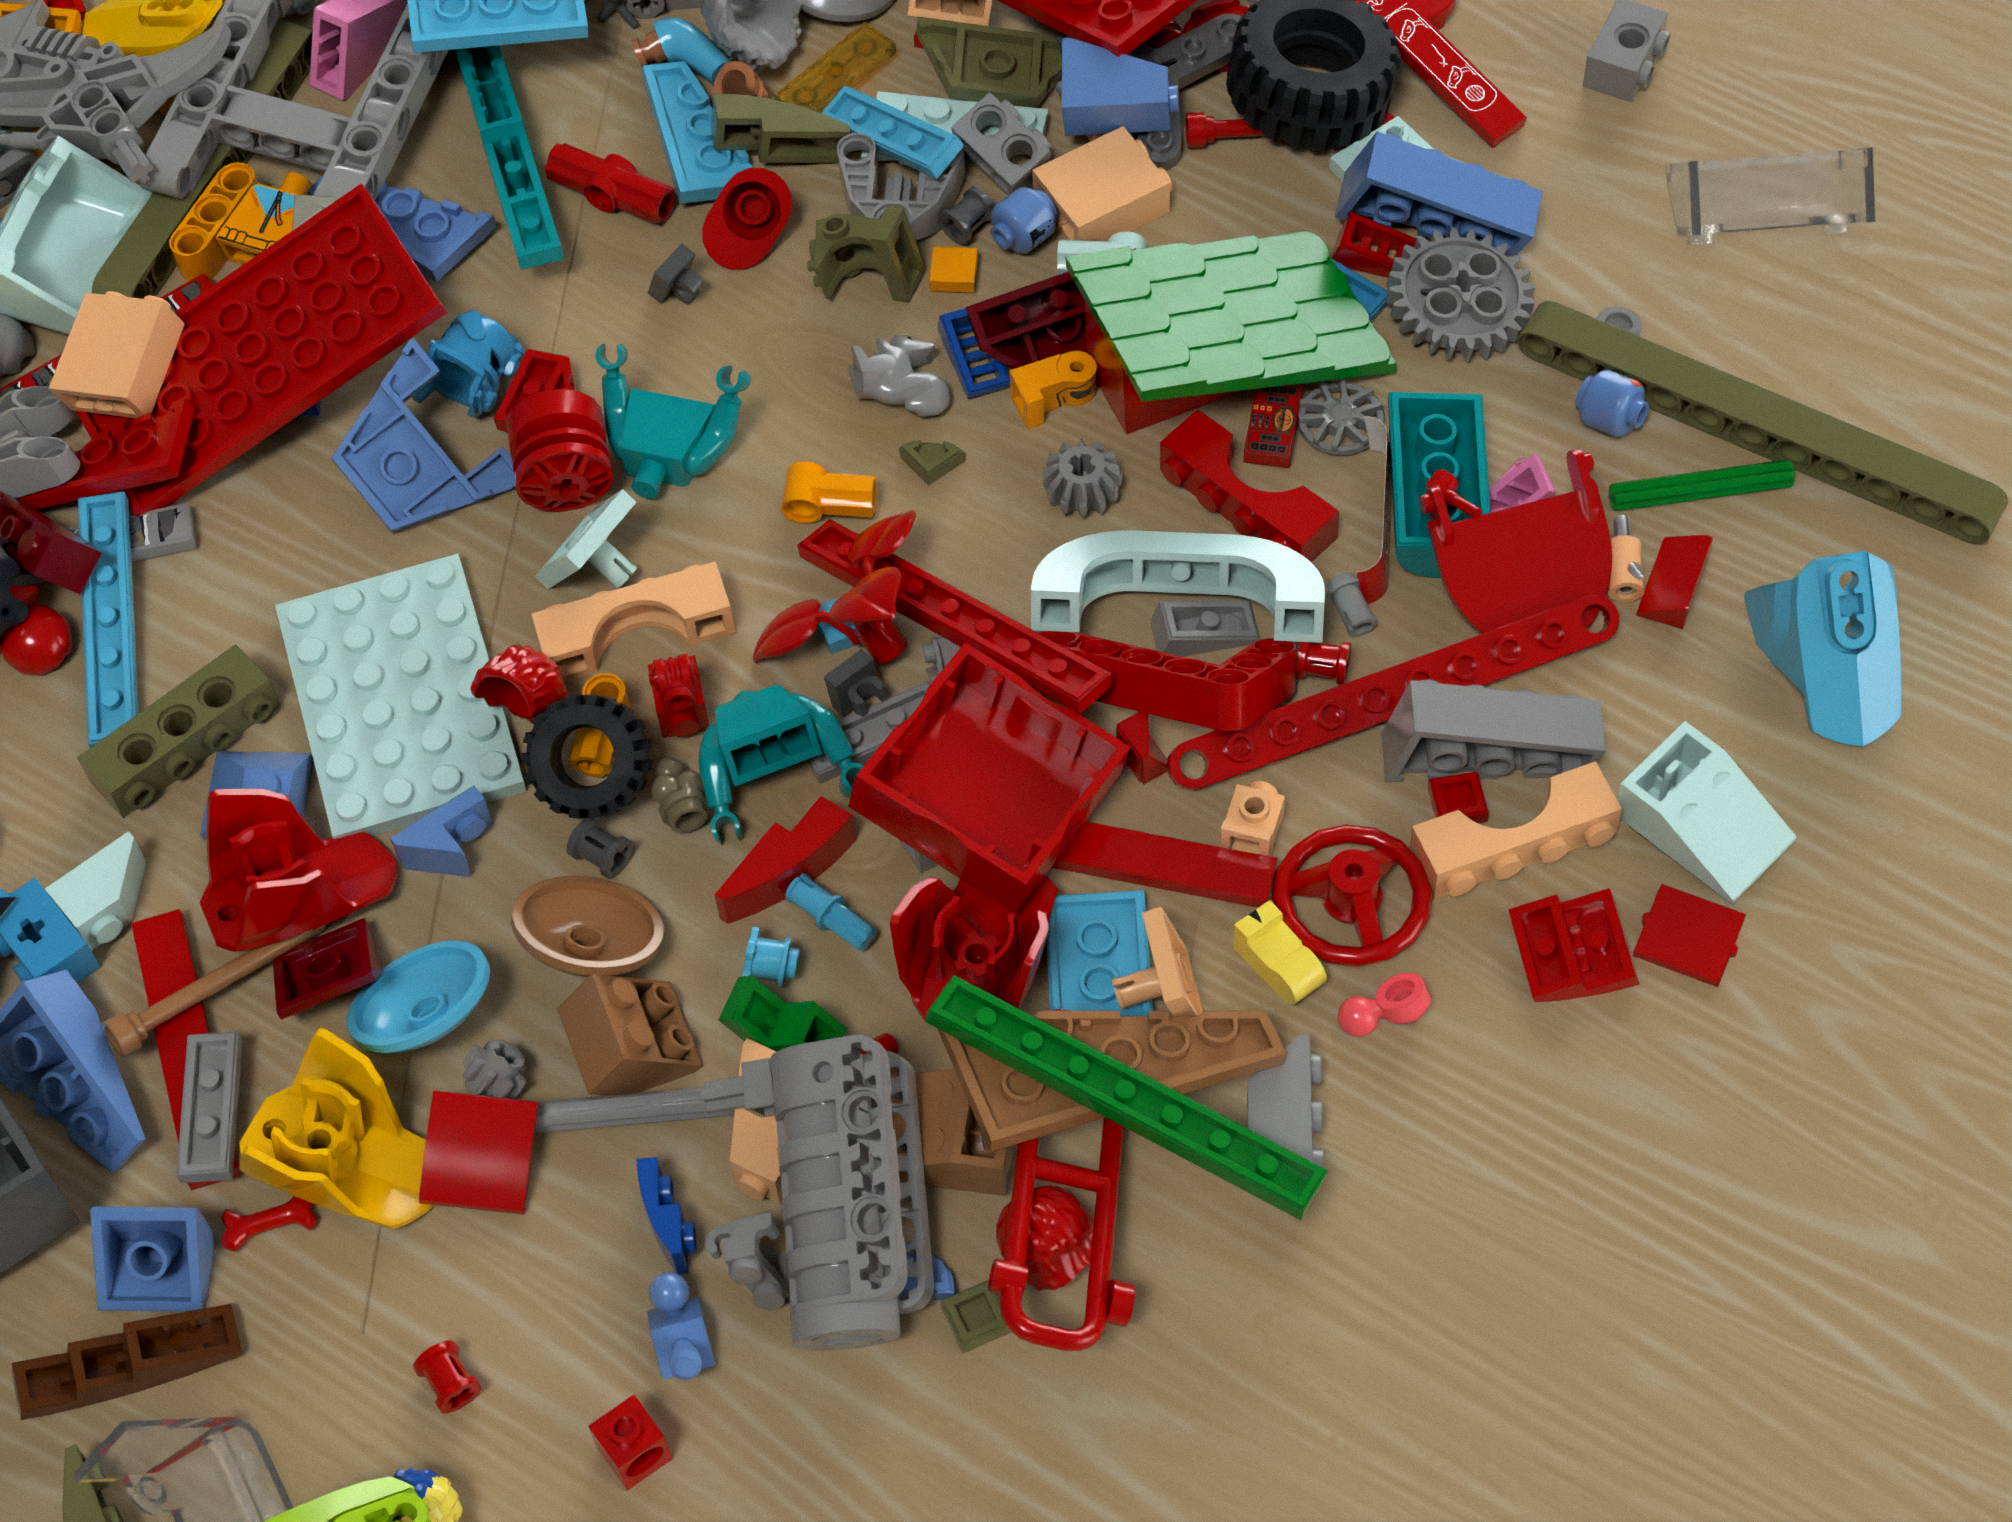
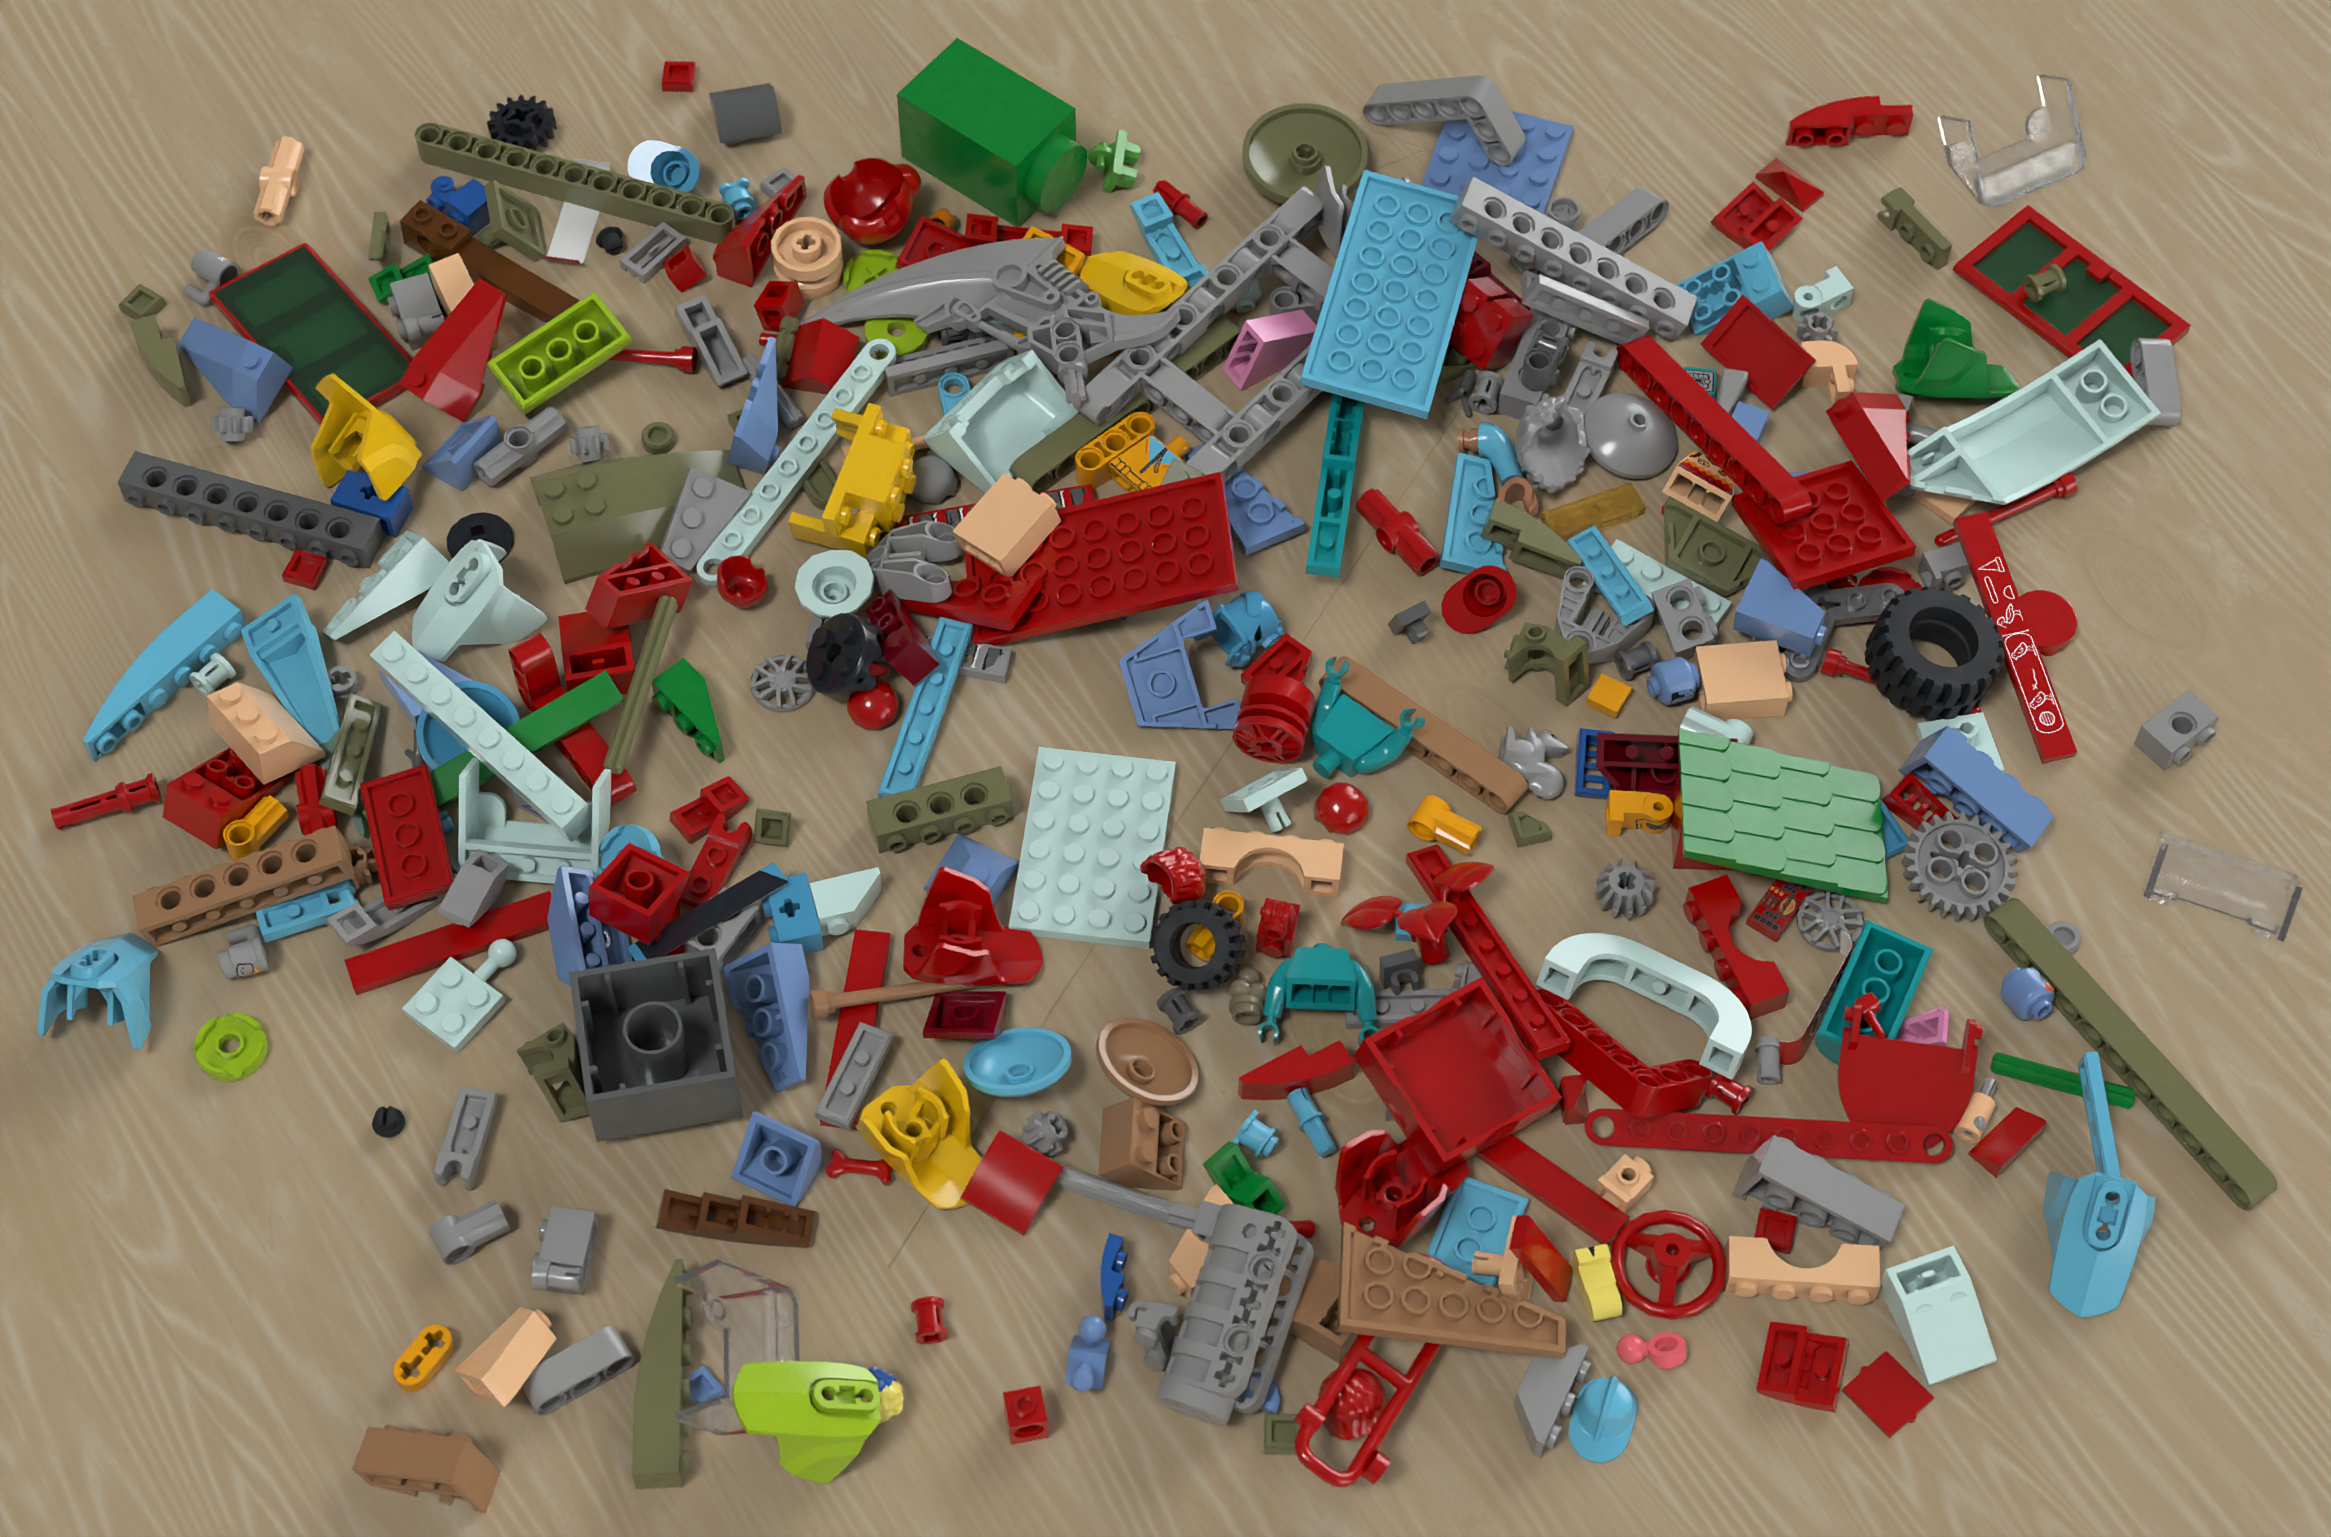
camera: 20 degrees right, 0 degrees up
(435, 839) = (1073, 957): medium blue slope -> none
(691, 525) = (1341, 808): none -> red hair
(774, 401) = (1436, 742): none -> medium nougat beam
(1127, 1097) = (1443, 1335): green tile -> none
(1199, 951) = (1540, 1258): none -> red tile
(1202, 626) = (1658, 1031): light grey slope -> none
(1365, 1118) = (1602, 1419): none -> medium azure piece
(1766, 501) = (2098, 1117): none -> medium azure tile

